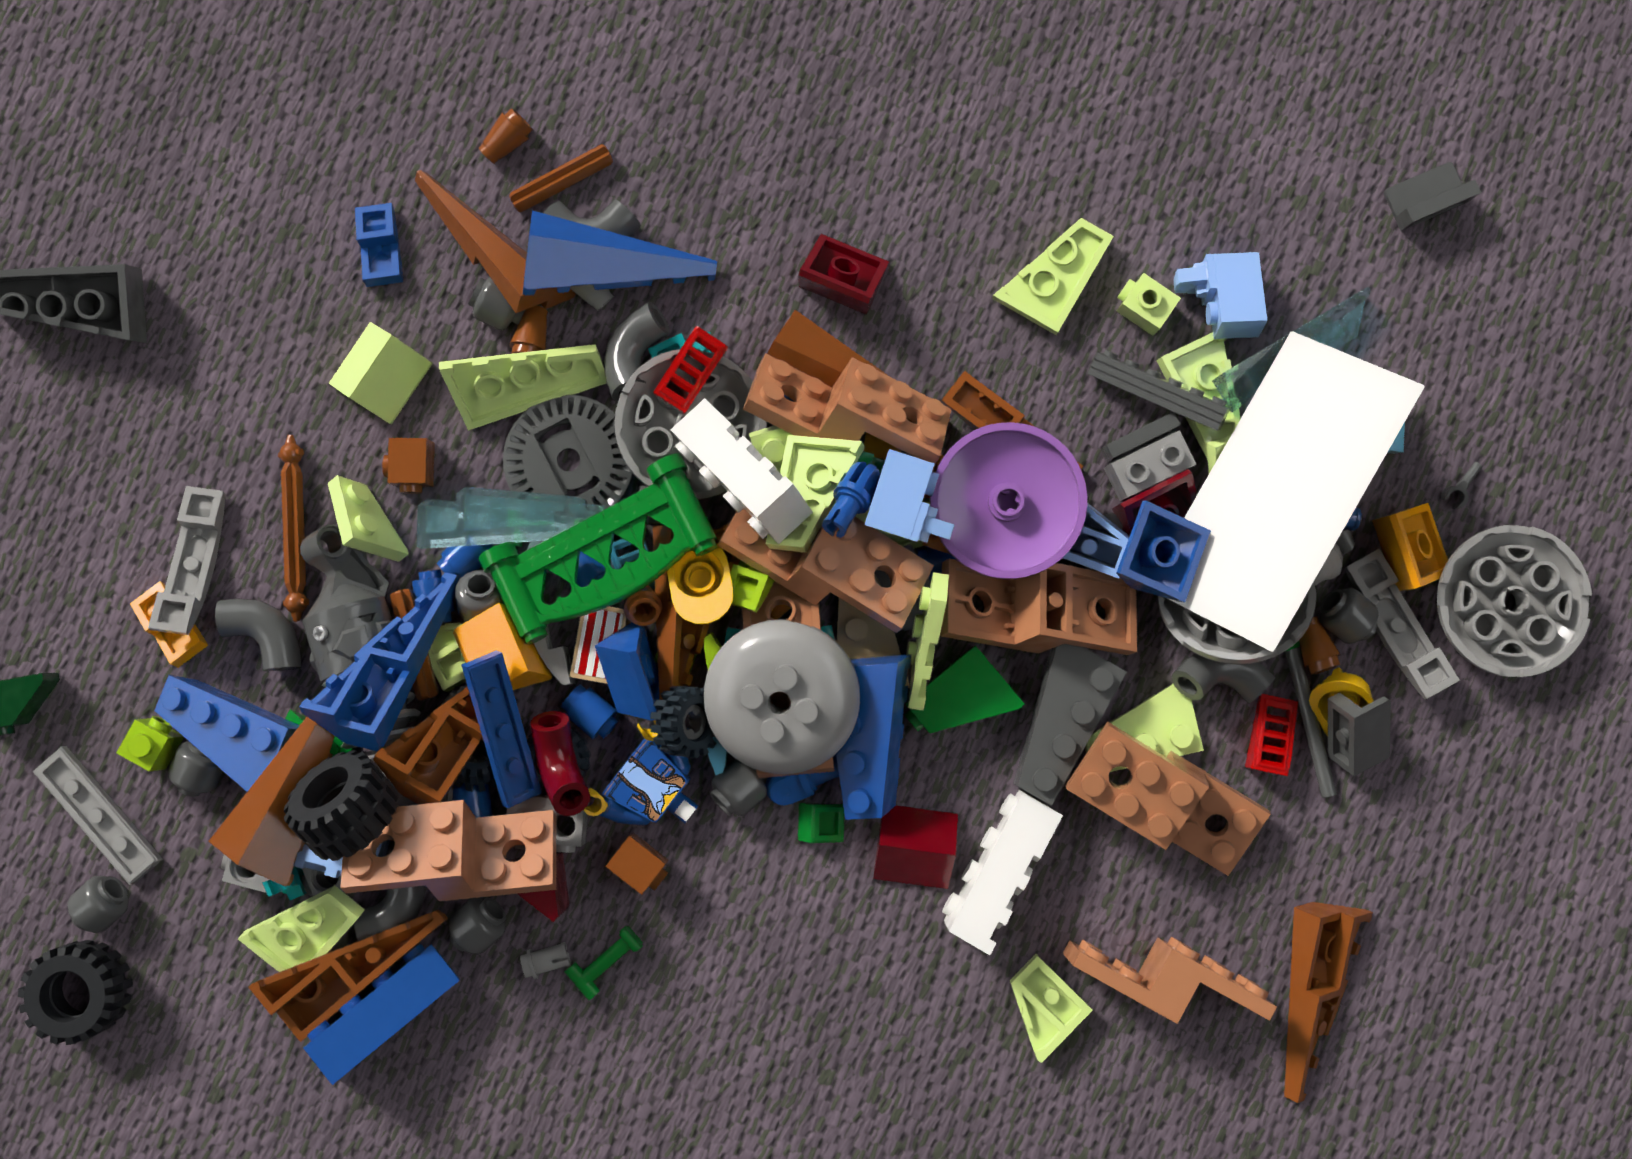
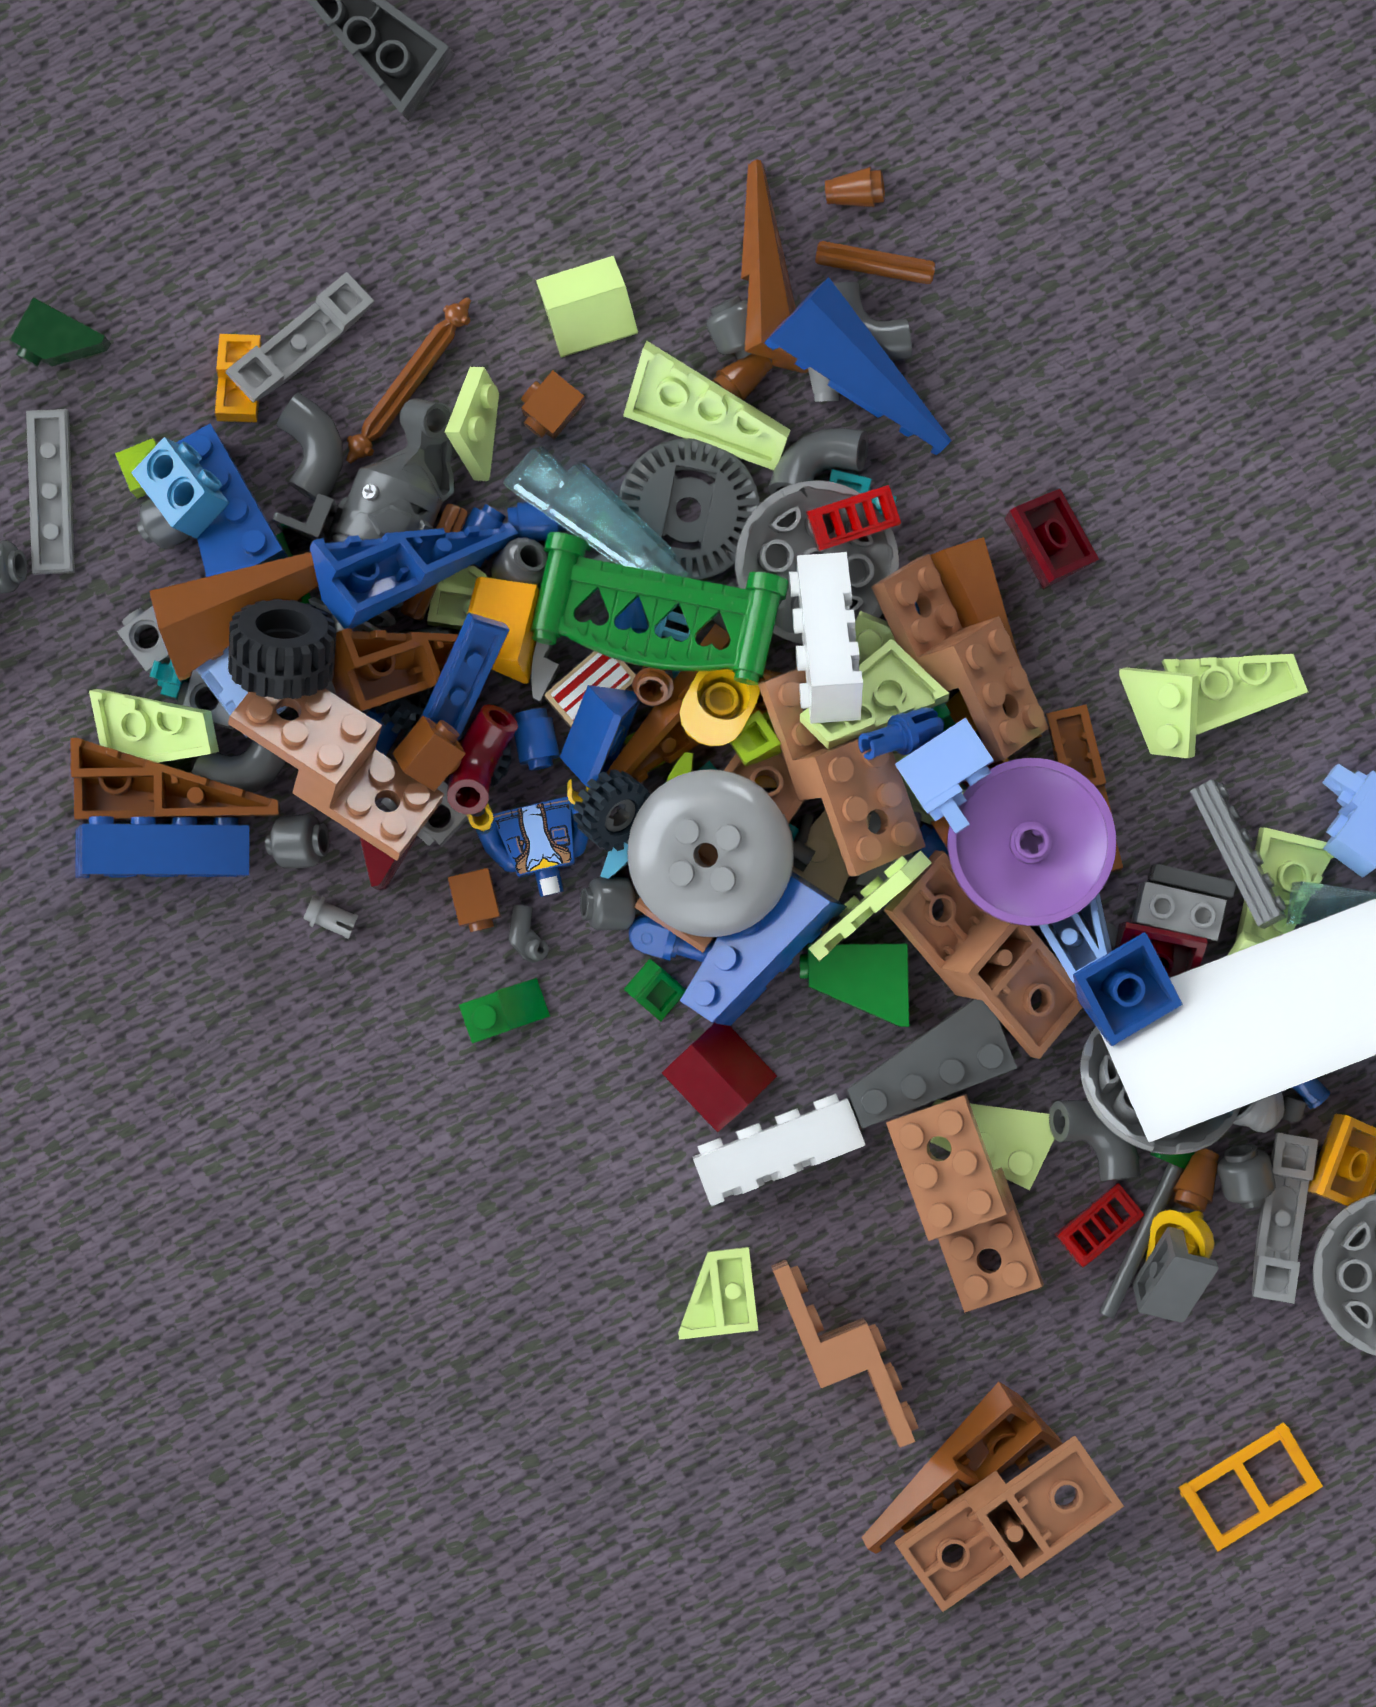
camera: 30 degrees right, 0 degrees up
(177, 741) = (181, 487): none -> dark azure brick
(303, 683) = (318, 525): none -> dark grey panel
(379, 244) = (673, 195): blue slope -> none
(517, 789) = (430, 752): none -> dark orange brick
(584, 978) = (349, 960): green piece -> none
(697, 862) = (523, 938): none -> dark grey arm
(724, 925) = (504, 1010): none -> green slope
(847, 641) = (803, 853): none -> dark grey hand
(1022, 330) = (1164, 709): none -> yellowish green wing
(1147, 303) = (1290, 772): yellowish green brick -> none
(1388, 1006) = (1009, 1524): none -> nougat bracket
(1554, 843) = (1235, 1462): none -> light orange window

